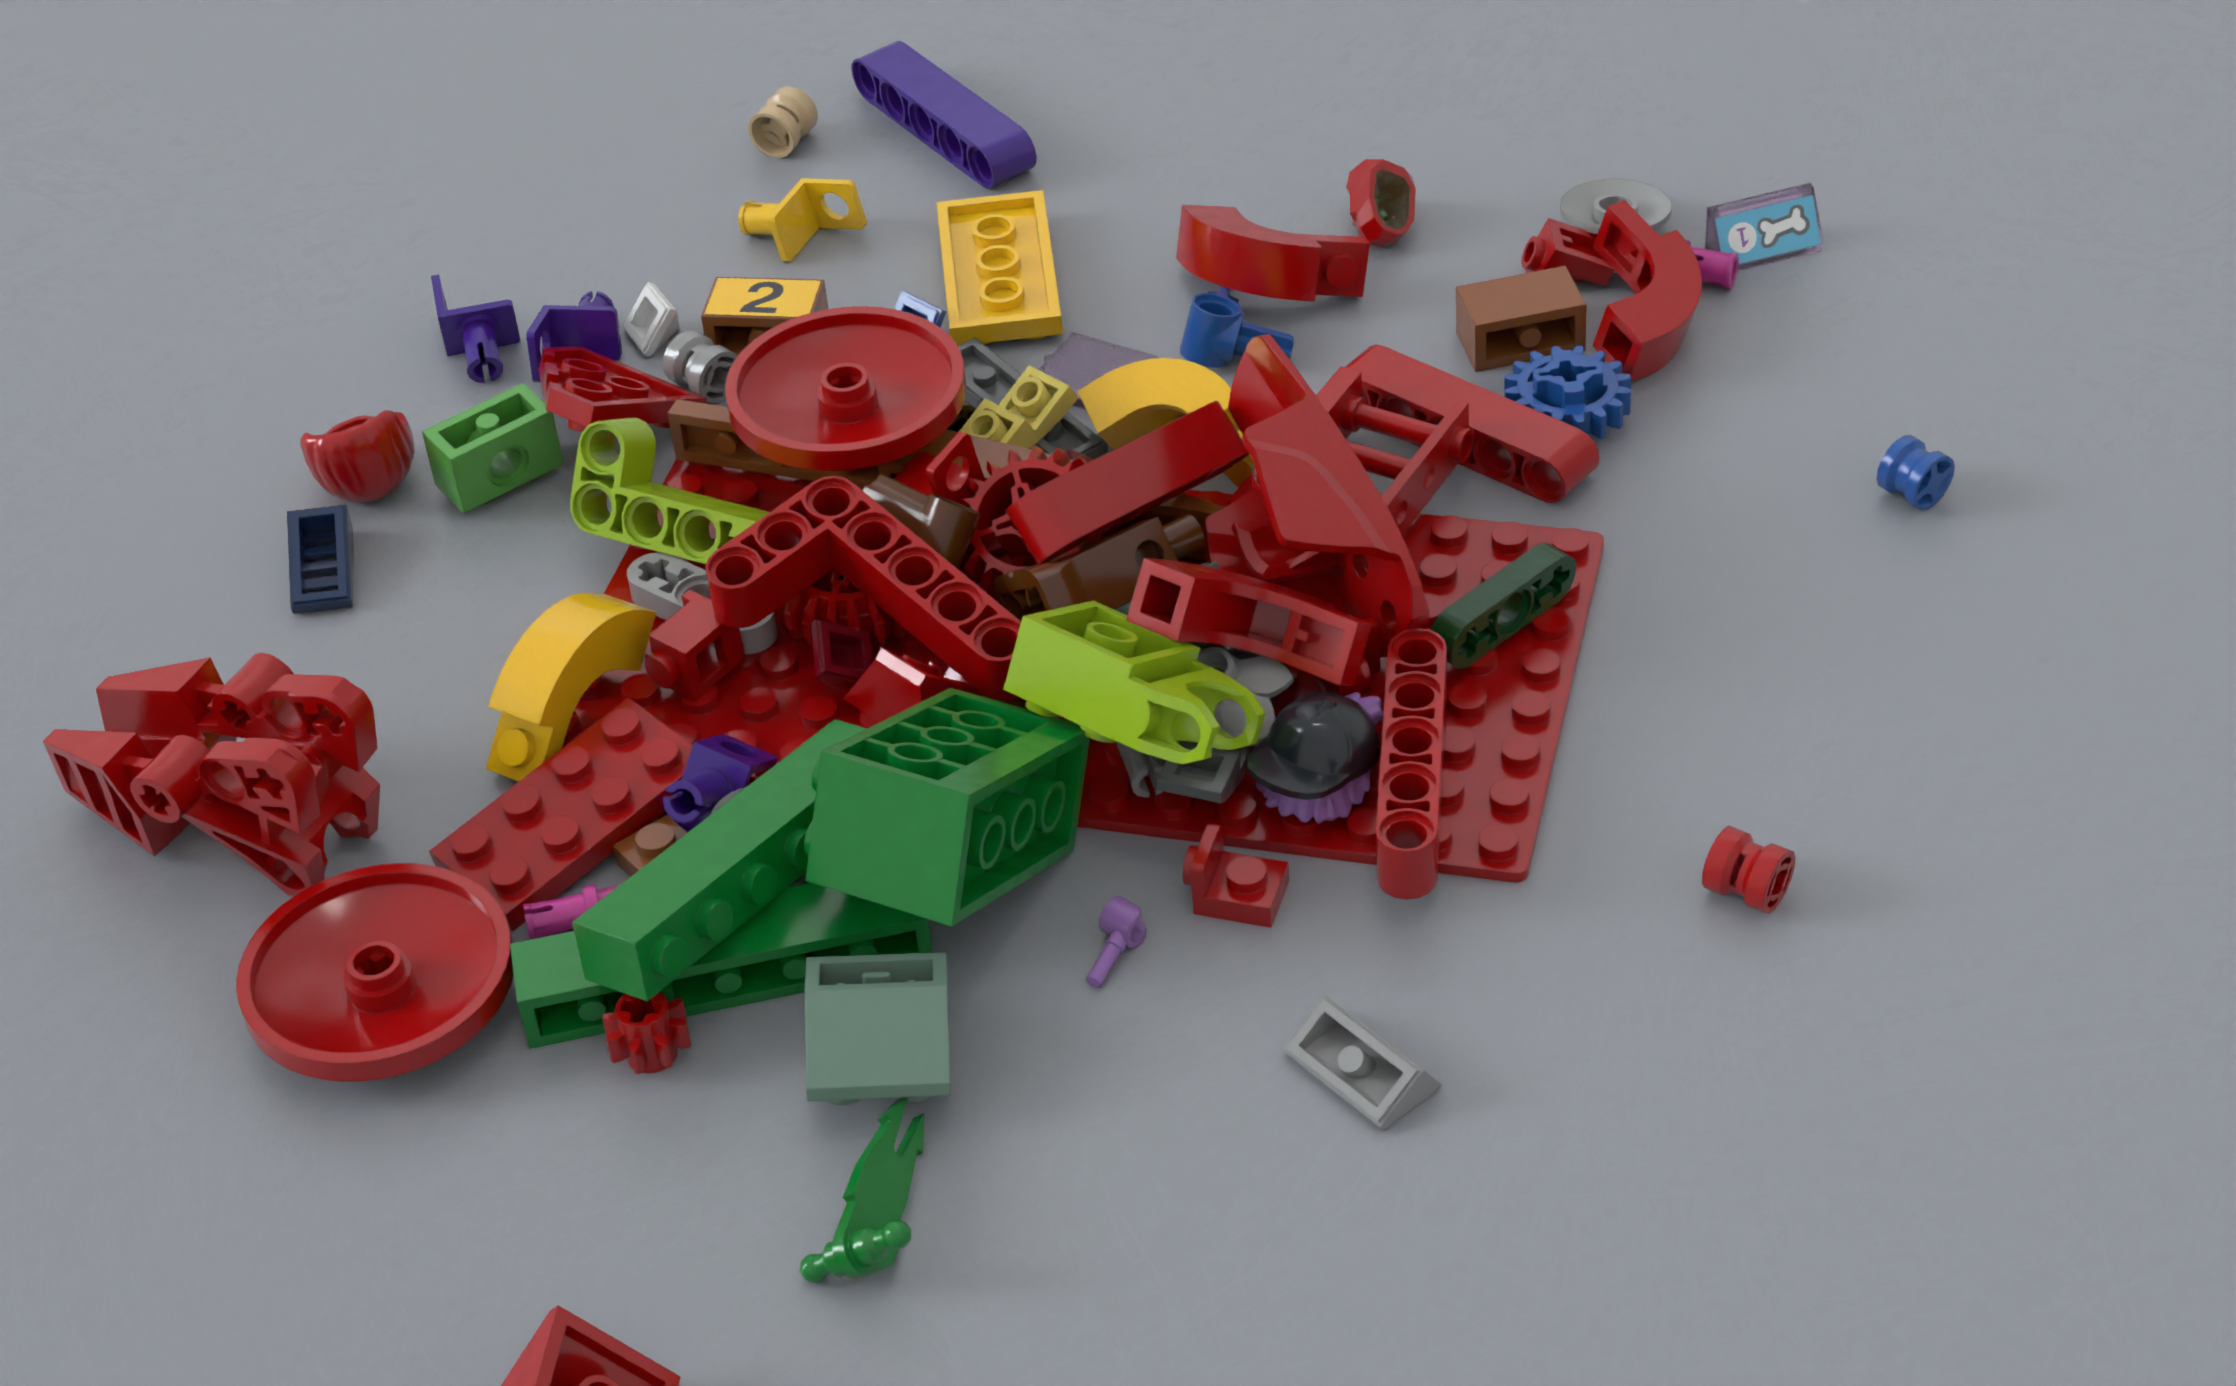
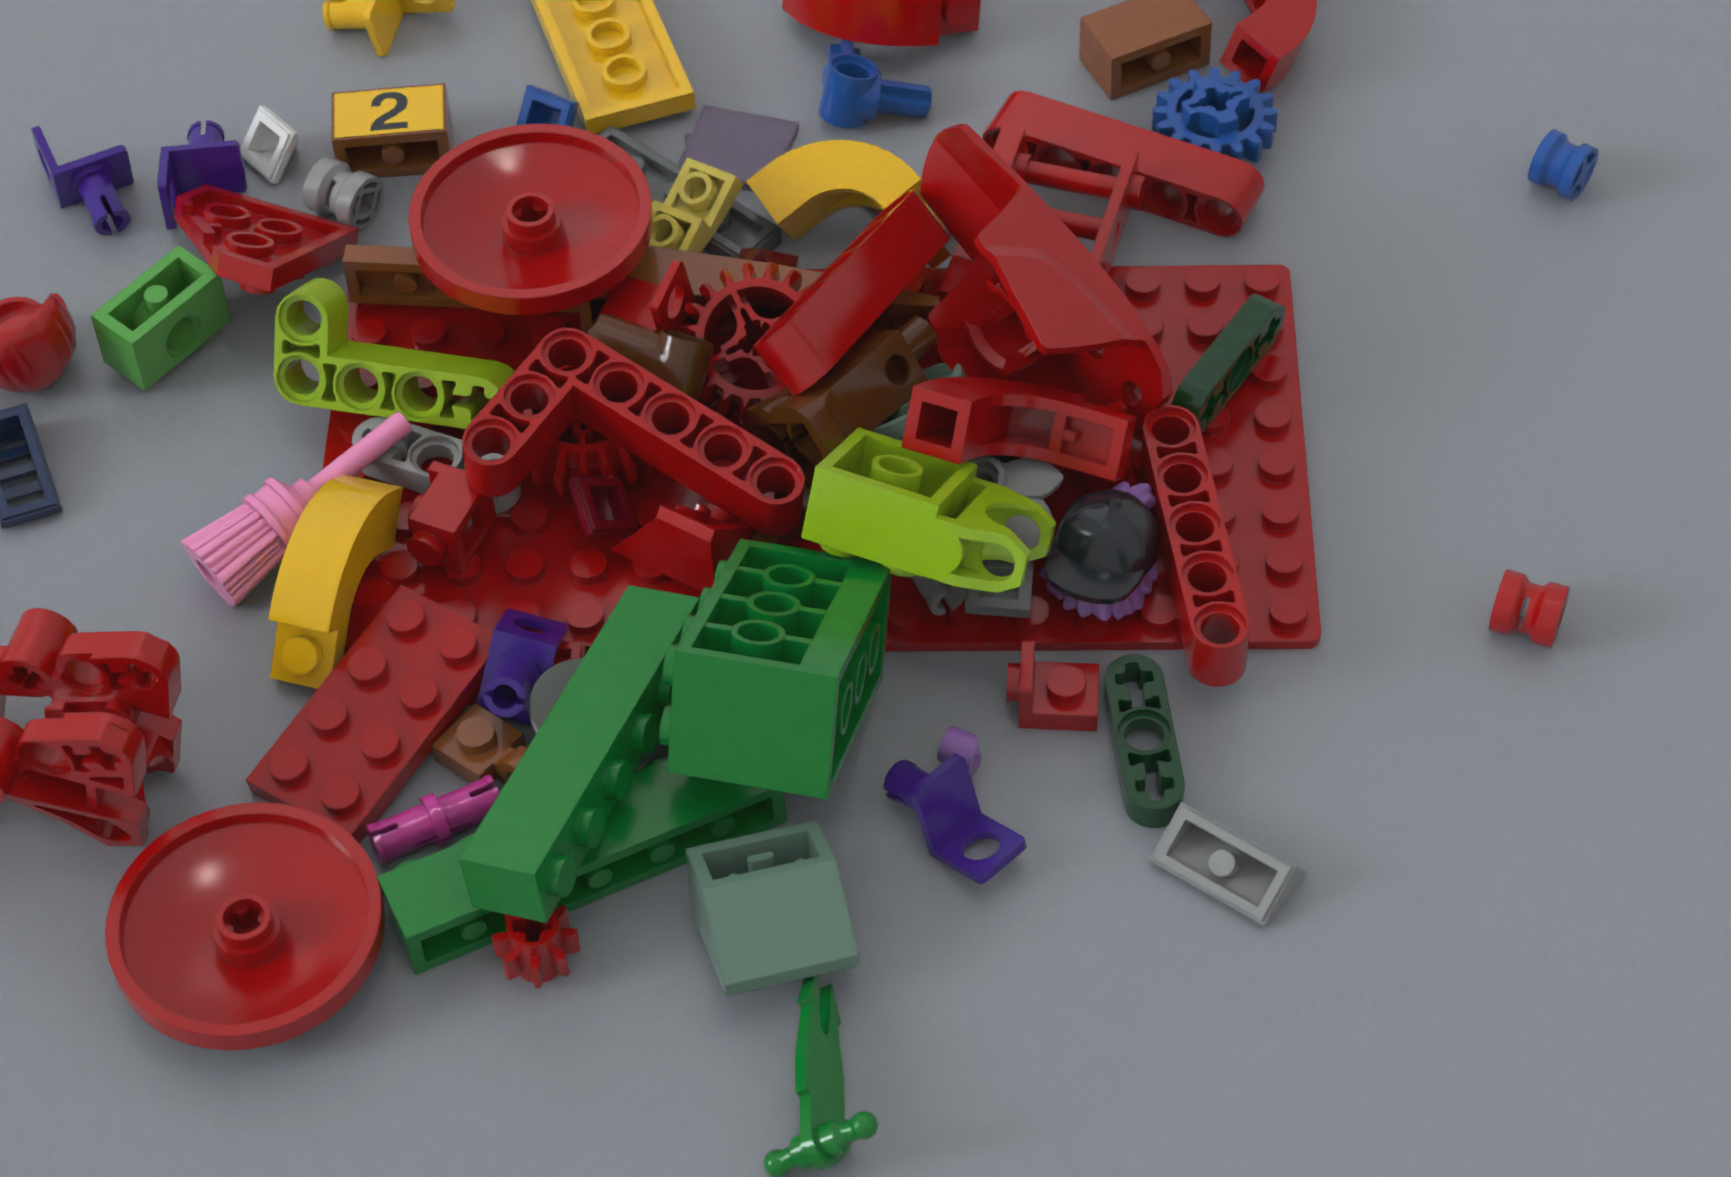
camera: 15 degrees left, 10 degrees up
(484, 644) = (252, 538): none -> bright pink piece
(1092, 976) = (952, 816): none -> dark purple bracket
(1302, 917) = (1135, 763): none -> dark green beam

